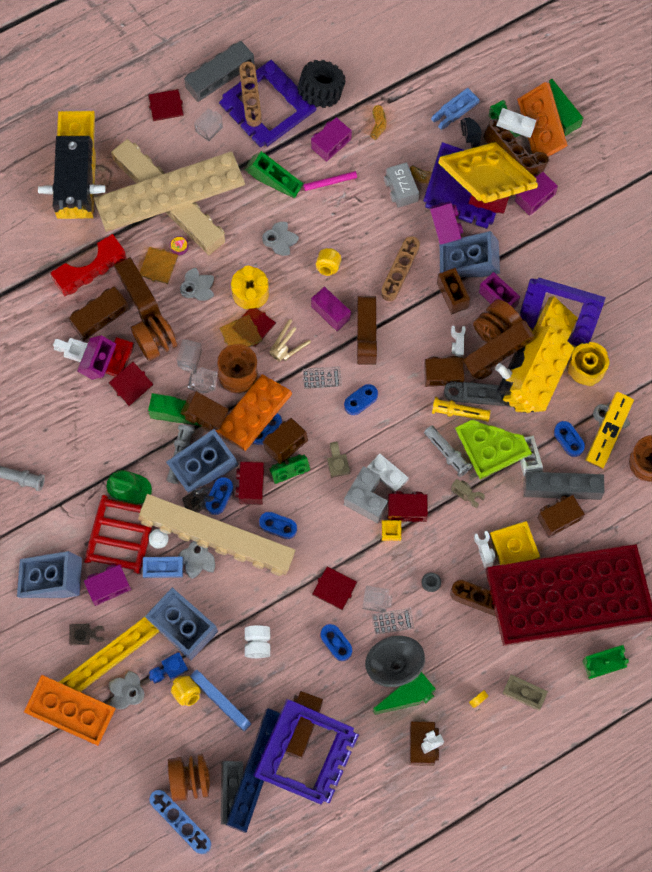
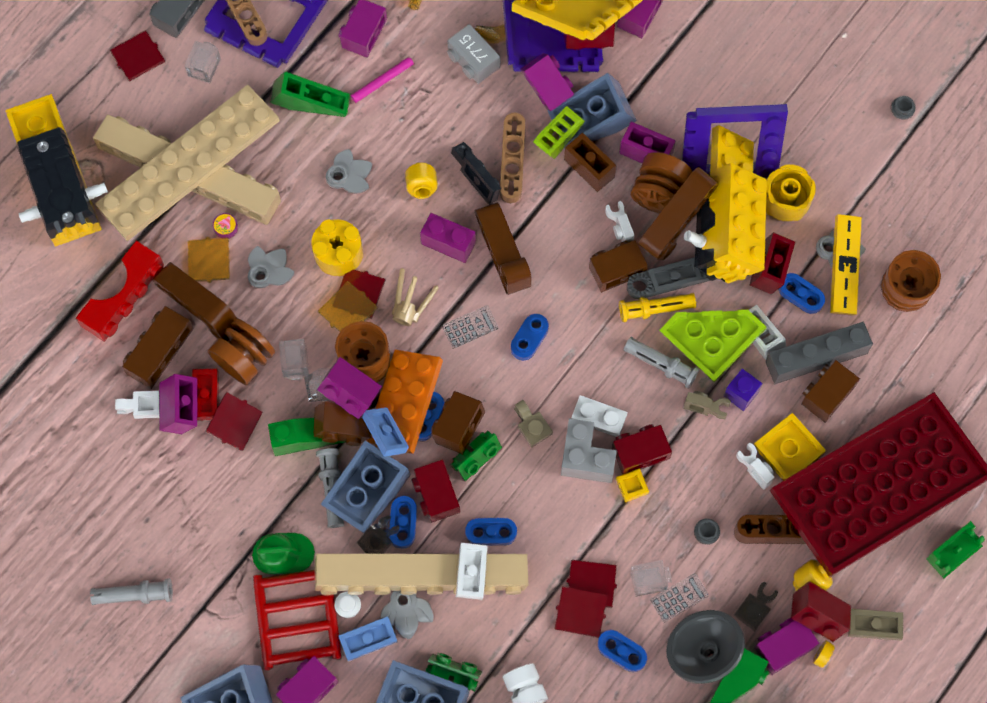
camera: 20 degrees left, 0 degrees up
(216, 388) = (349, 388): none -> magenta brick
(219, 615) = (463, 673): none -> green hinge
(230, 428) = (385, 432): none -> medium blue plate
(250, 546) = (471, 571): none -> white plate
(318, 604) = (580, 612): none -> dark red piece
(369, 270) = (476, 173): none -> black hinge
(430, 260) = (565, 137): none -> lime slope
(442, 649) = (753, 608): none -> clear smoke plate
(454, 682) = (785, 645): none -> magenta brick
(487, 668) = (821, 611): none -> dark red brick
(490, 643) = (812, 572): none -> yellow head
(497, 491) = (743, 389): none -> dark purple brick
(557, 409) = (777, 260): none -> dark red brick

